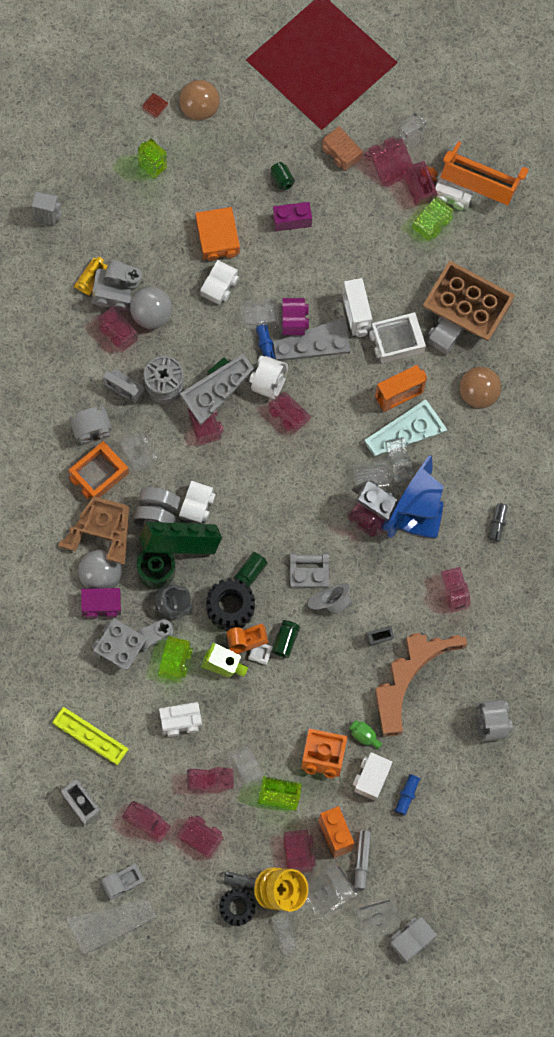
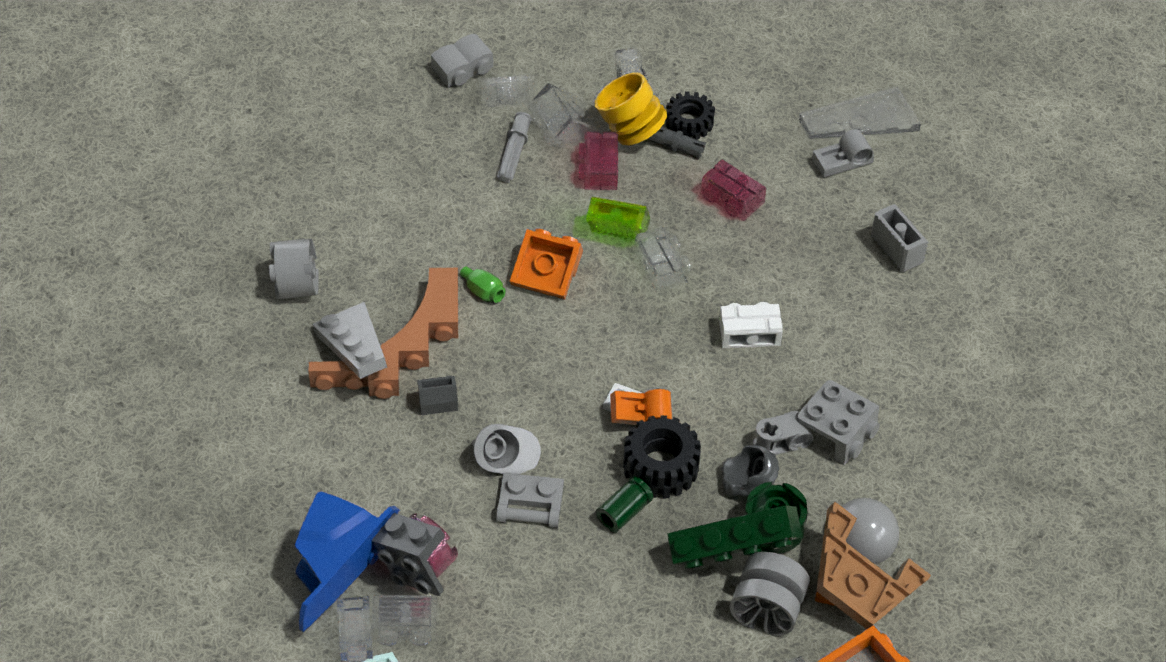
camera: 170 degrees left, 20 degrees down
(90, 736) = (883, 325): neon yellow tile -> none
(101, 602) = (863, 480): magenta brick -> none
(146, 820) = (812, 210): clear pink brick -> none
(174, 659) = (753, 398): clear neon green brick -> none
(196, 503) = (700, 610): white brick -> none
(211, 780) = (712, 249): clear pink brick -> none
(216, 659) = (687, 380): lime torso -> none
(285, 639) = (582, 407): dark green piece -> none
(336, 832) = (546, 160): orange brick -> none
(373, 776) = (482, 227): white brick -> none
(407, 794) = (436, 209): blue pin -> none
(445, 672) = (352, 339): none -> light grey wing
(456, 590) = (307, 438): clear pink brick -> none
(498, 522) = (213, 533): dark grey axle -> none

